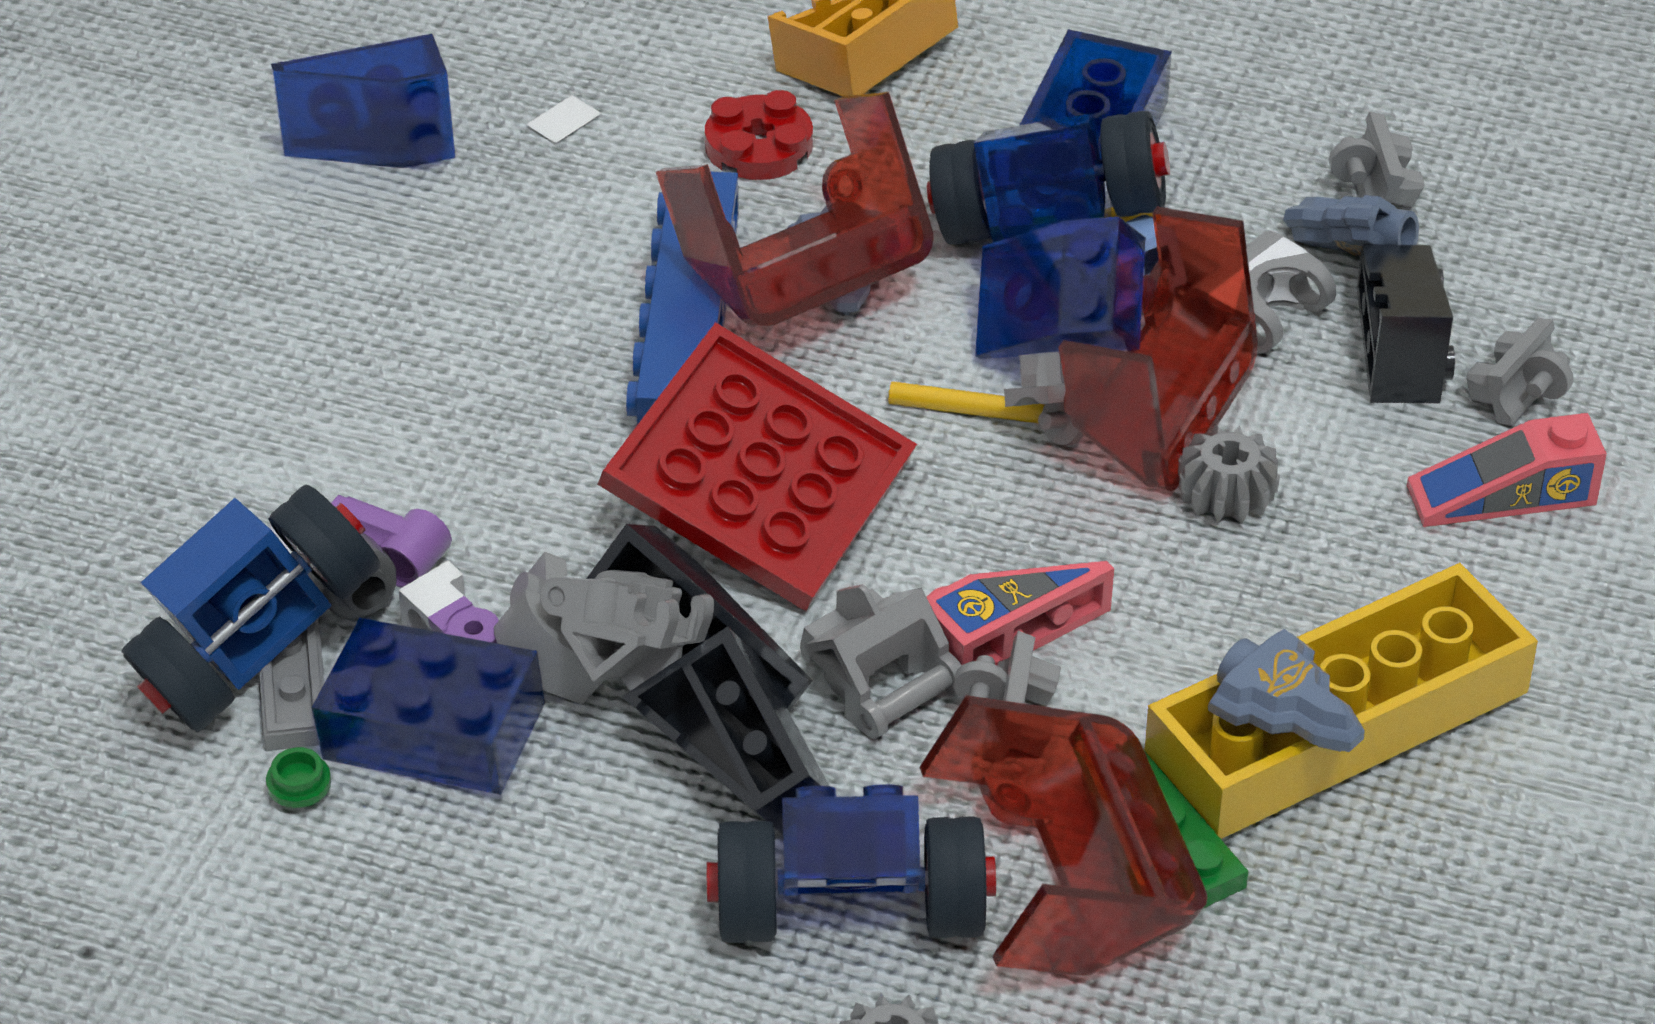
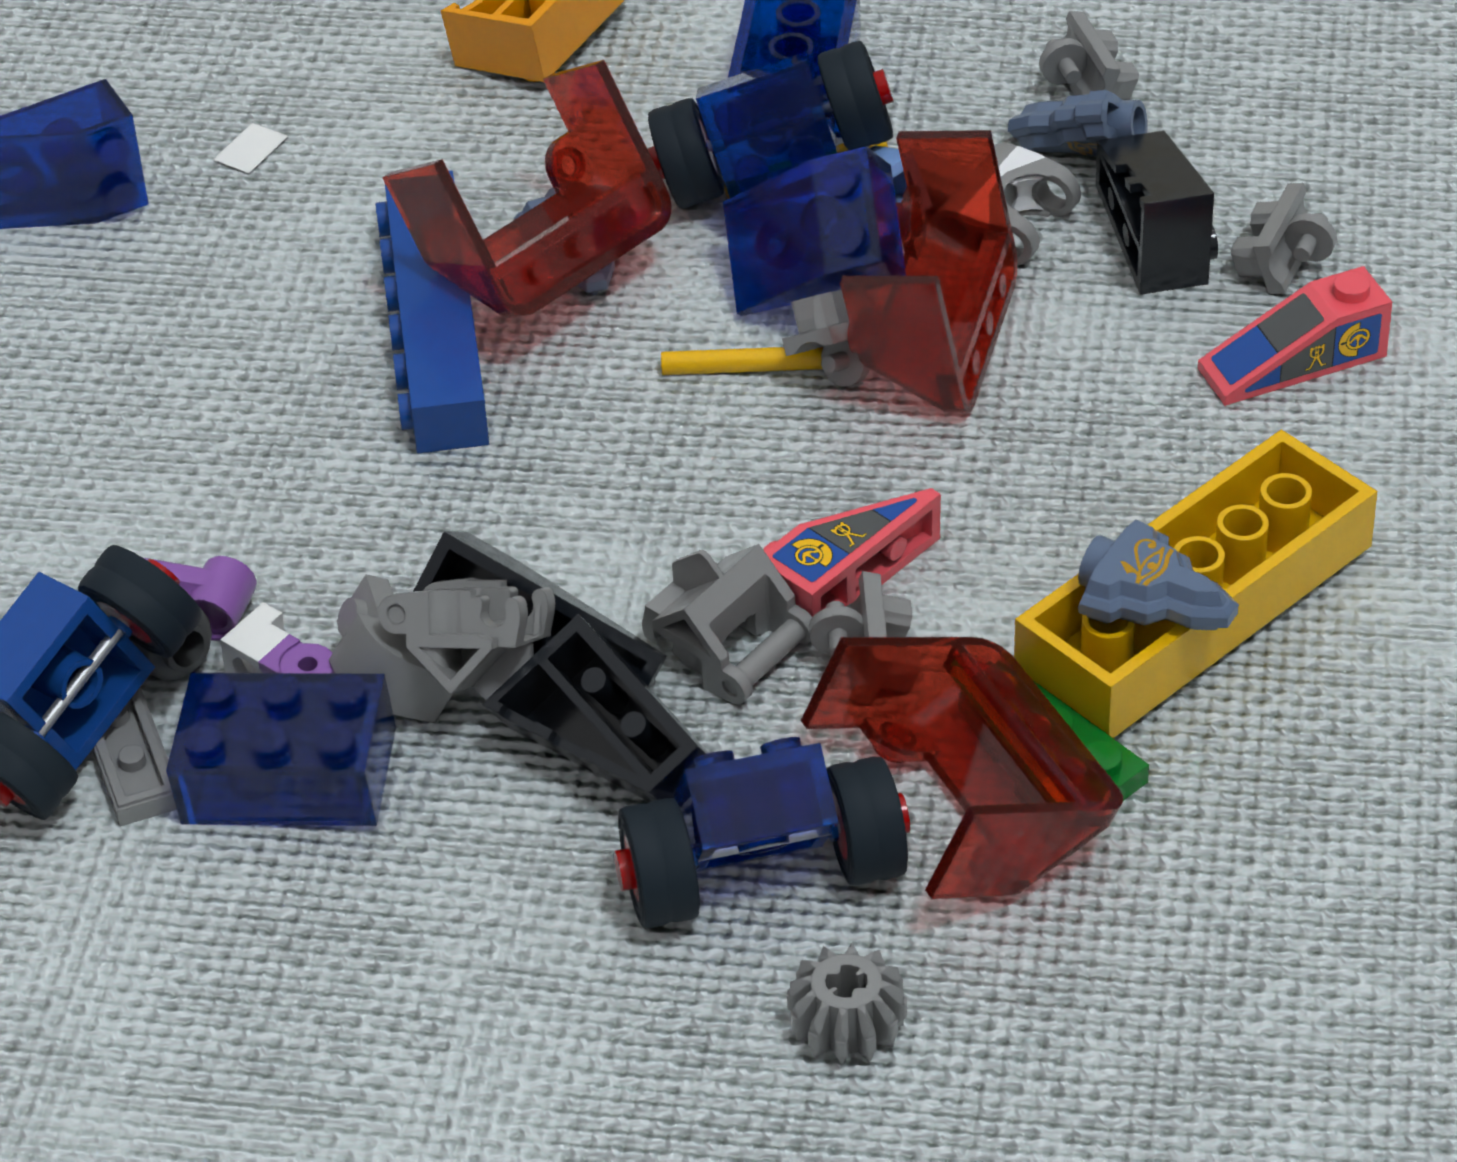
camera: 10 degrees left, 0 degrees up
(298, 778) = (163, 846): green plate -> none
(733, 129) = (432, 126): red plate -> none
(758, 465) = (554, 455): red plate -> none
(1228, 474) = (1023, 385): light grey gear -> none

